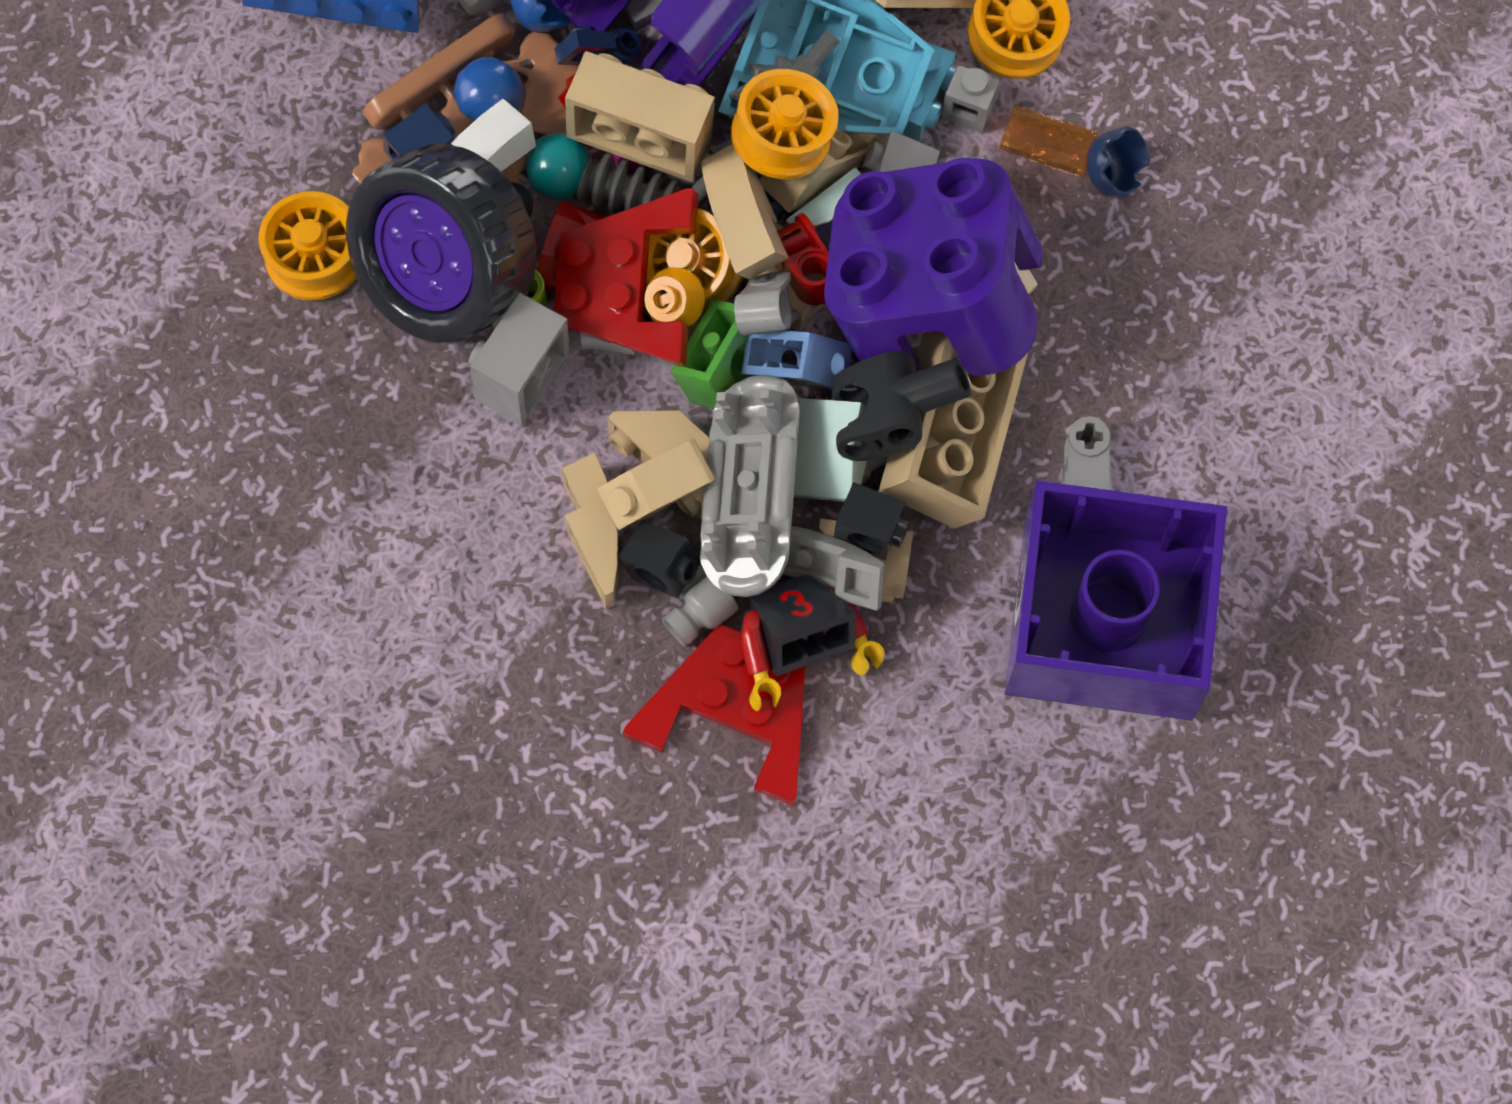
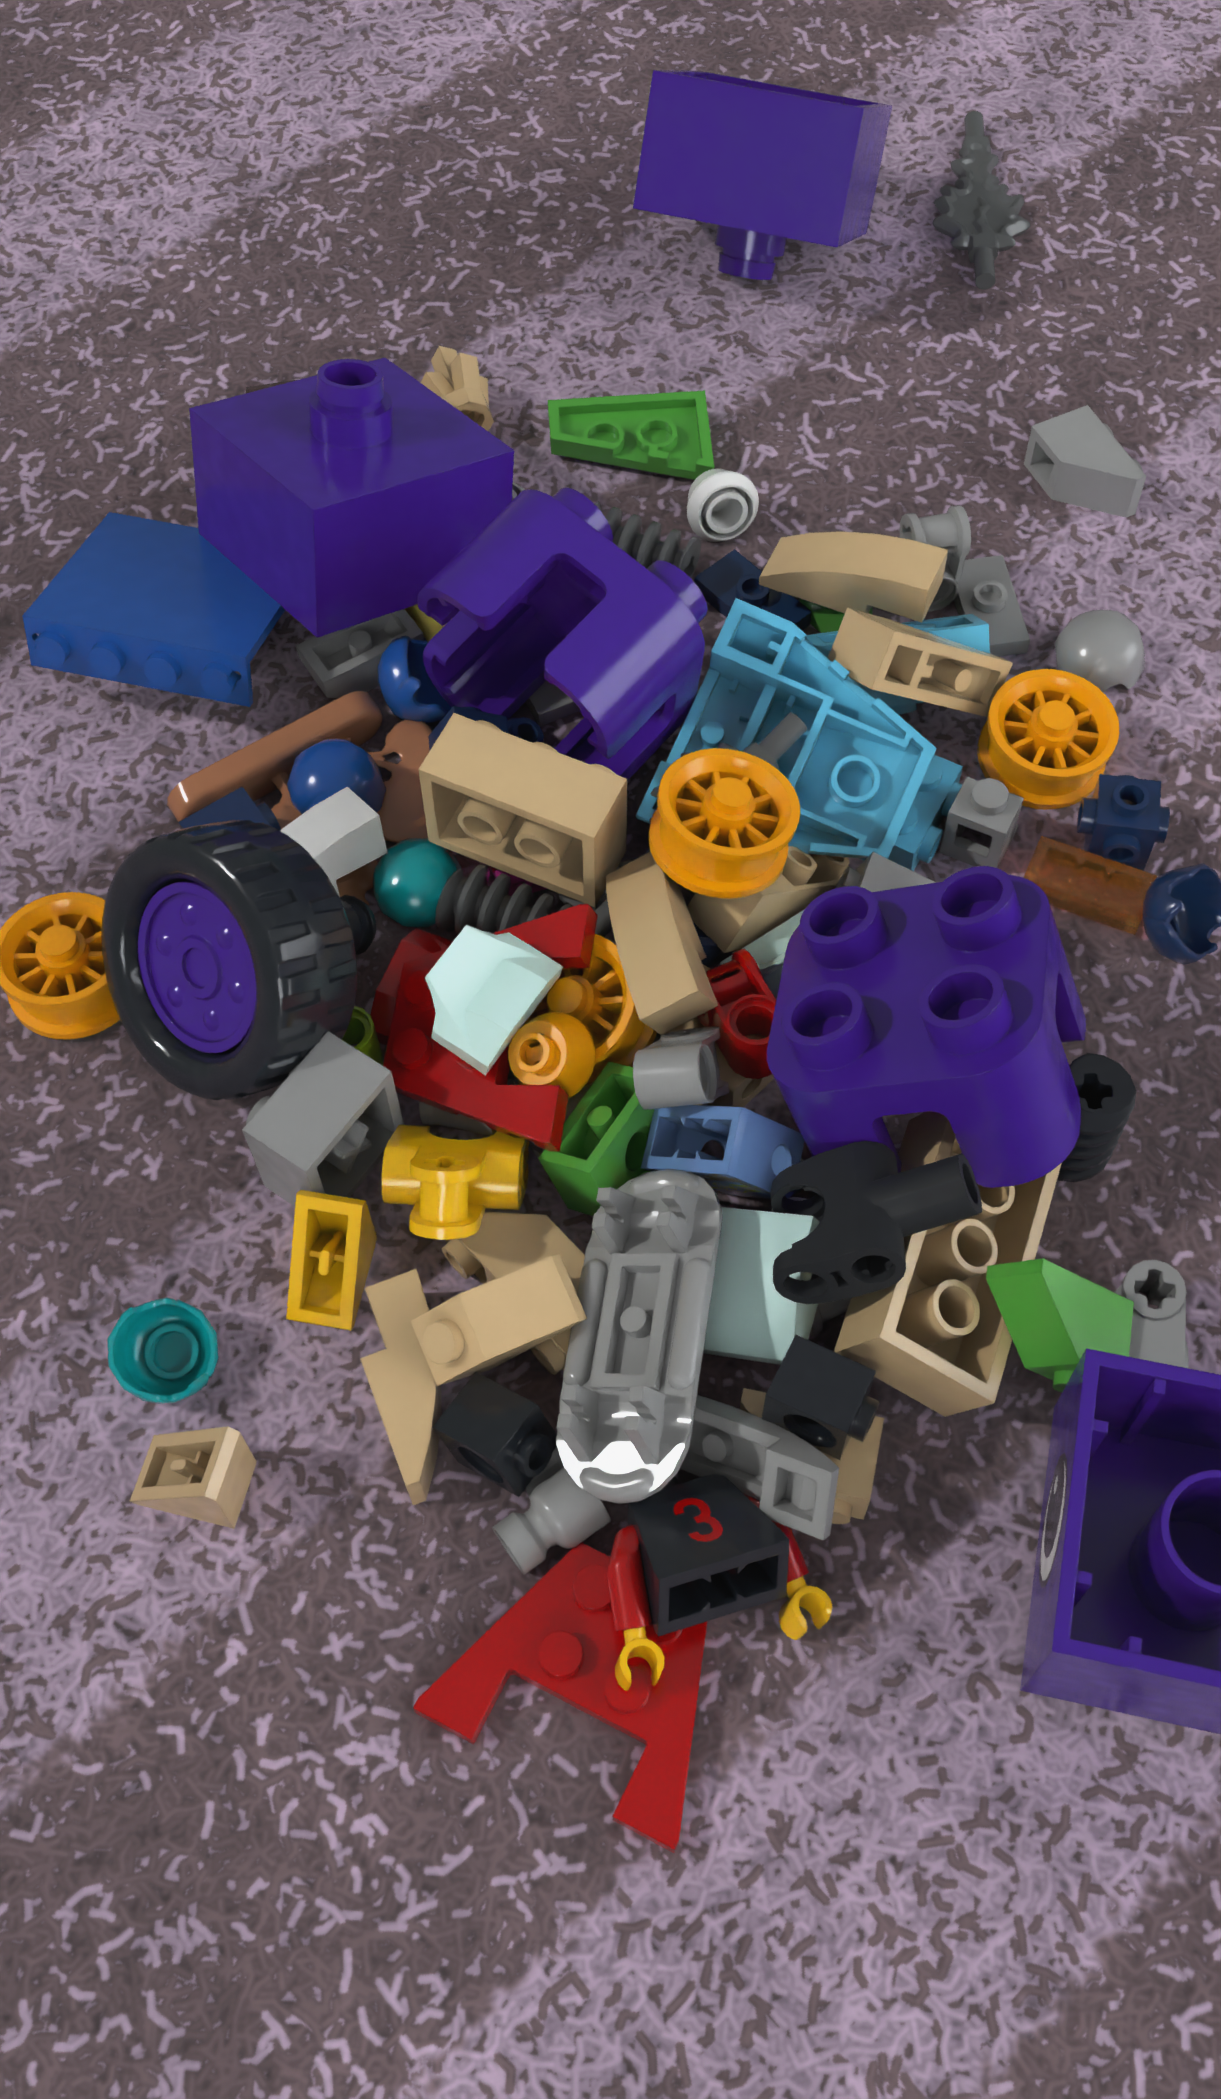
camera: 10 degrees right, 10 degrees down
(428, 518) = (163, 1350): none -> teal hair
(460, 598) = (197, 1475): none -> tan slope
(531, 450) = (329, 1259): none -> yellow slope
(613, 389) = (452, 1179): none -> yellow piece
(628, 258) = (486, 993): none -> light aqua slope
(1024, 456) = (1058, 1316): none -> bright green slope
(1054, 315) = (1106, 1103): none -> black piece
(1073, 90) = (1123, 819): none -> dark blue brick

